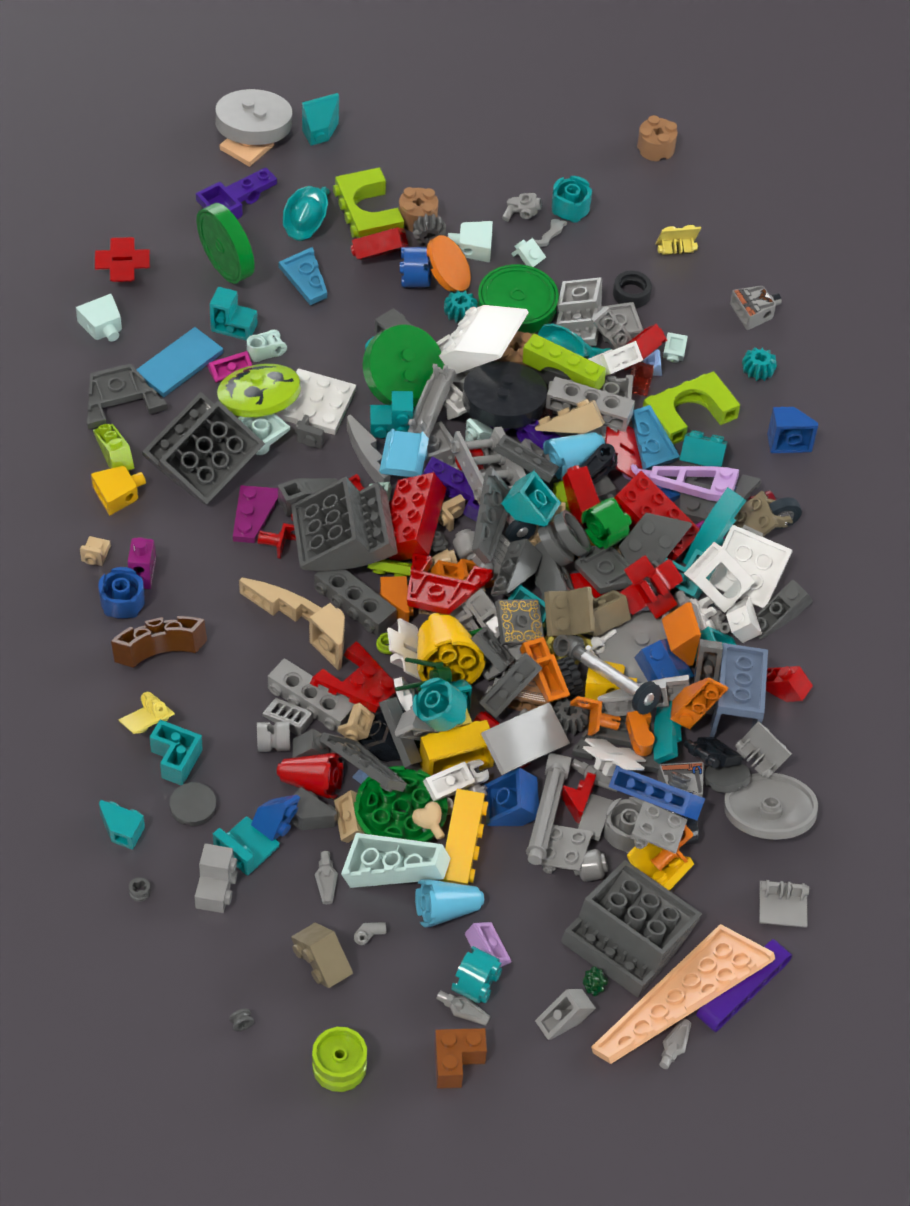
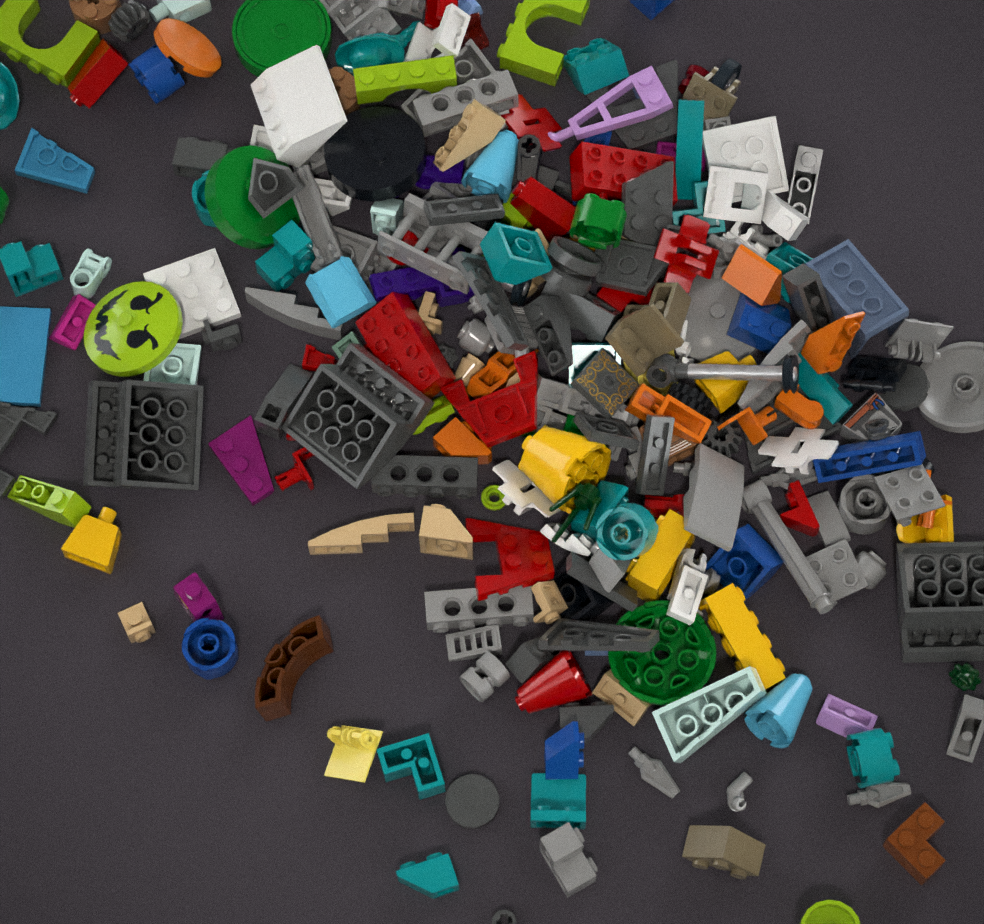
camera: 35 degrees left, 15 degrees up
(416, 364) = (271, 186): none -> dark grey slope
(429, 818) = (701, 644): tan rock -> none
(457, 304) = (231, 76): teal gear -> none
(652, 440) = (543, 93): dark azure wing -> none
(788, 683) = (880, 249): red slope -> none

